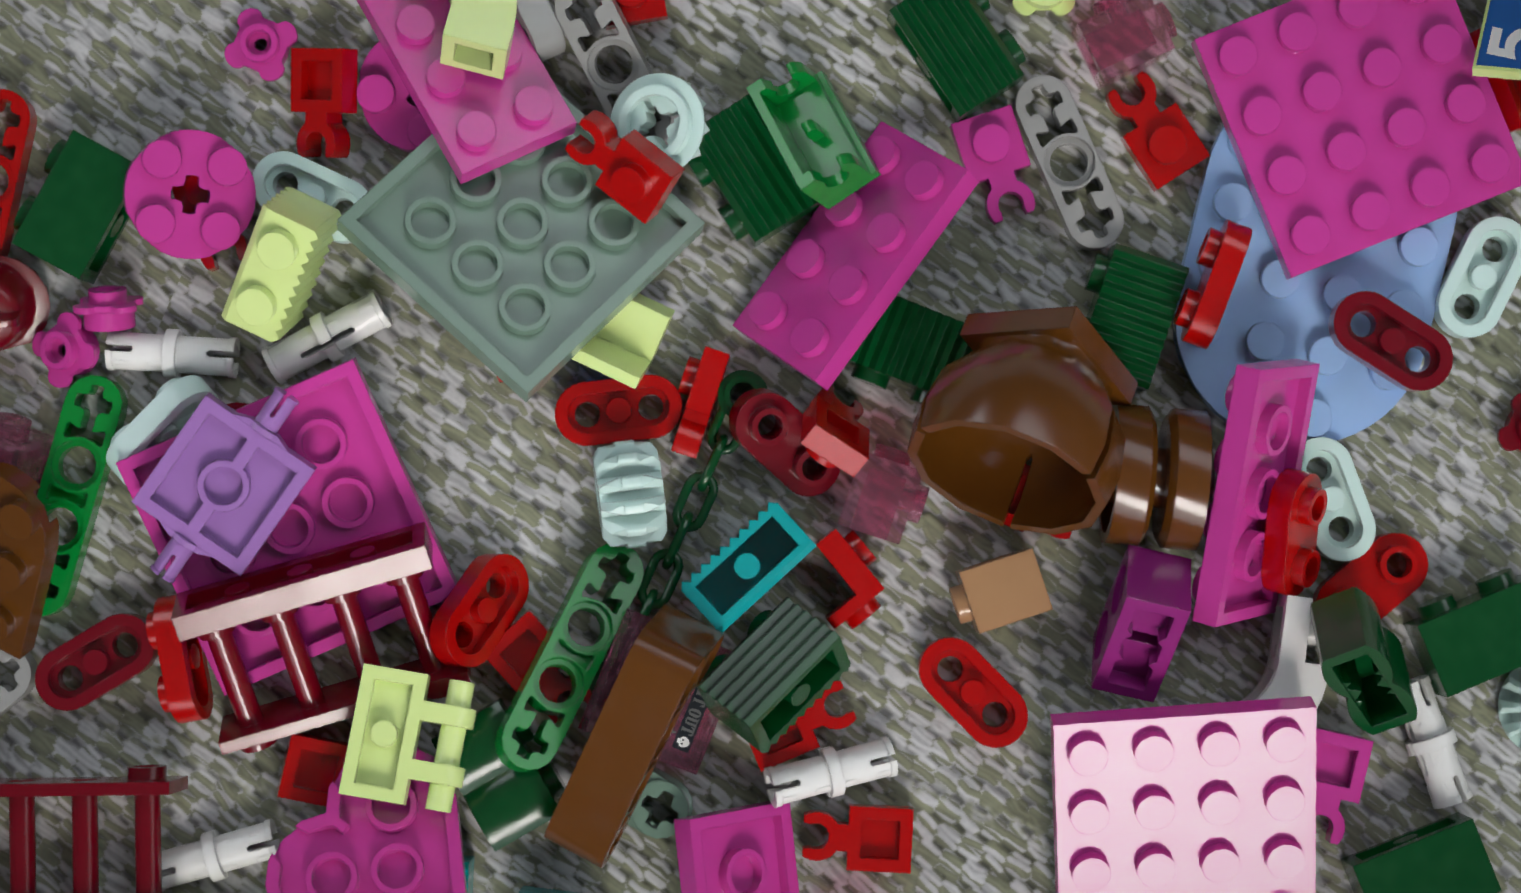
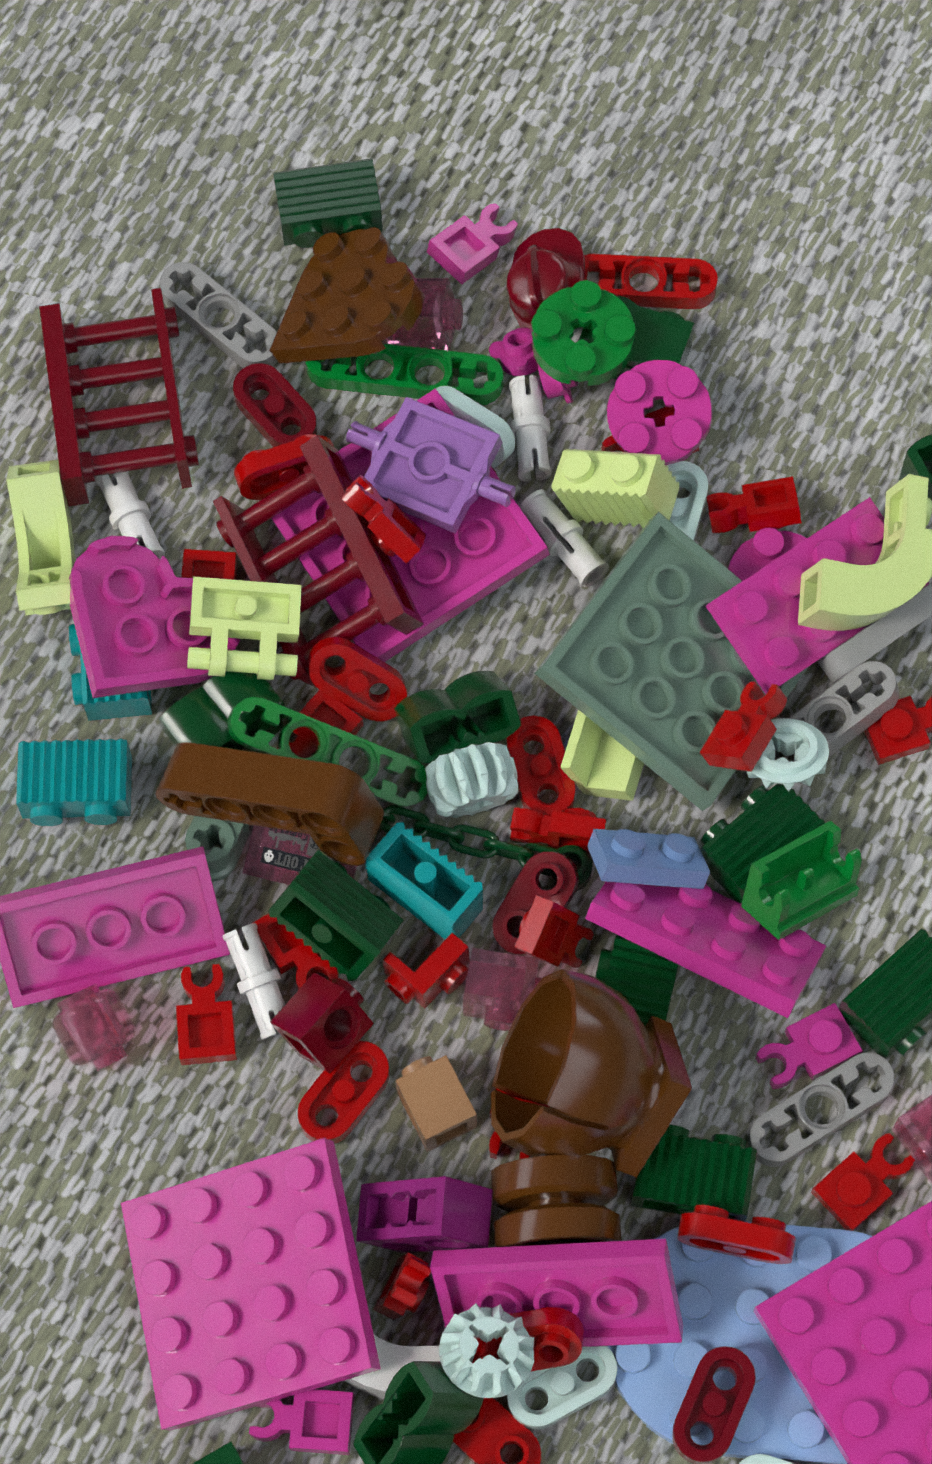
camera: 85 degrees right, 20 degrees down
(35, 260) = (584, 307): none -> green plate
(266, 62) = (779, 465): dark pink plate -> none
(302, 544) = (390, 525): none -> red plate
(546, 498) = (467, 712): none -> dark green brick
(761, 306) = (648, 858): none -> medium blue plate
(895, 705) = (323, 1021): none -> dark red brick
(1208, 657) = (404, 1287): none -> red plate
(1309, 608) = (488, 1375): none -> light aqua gear

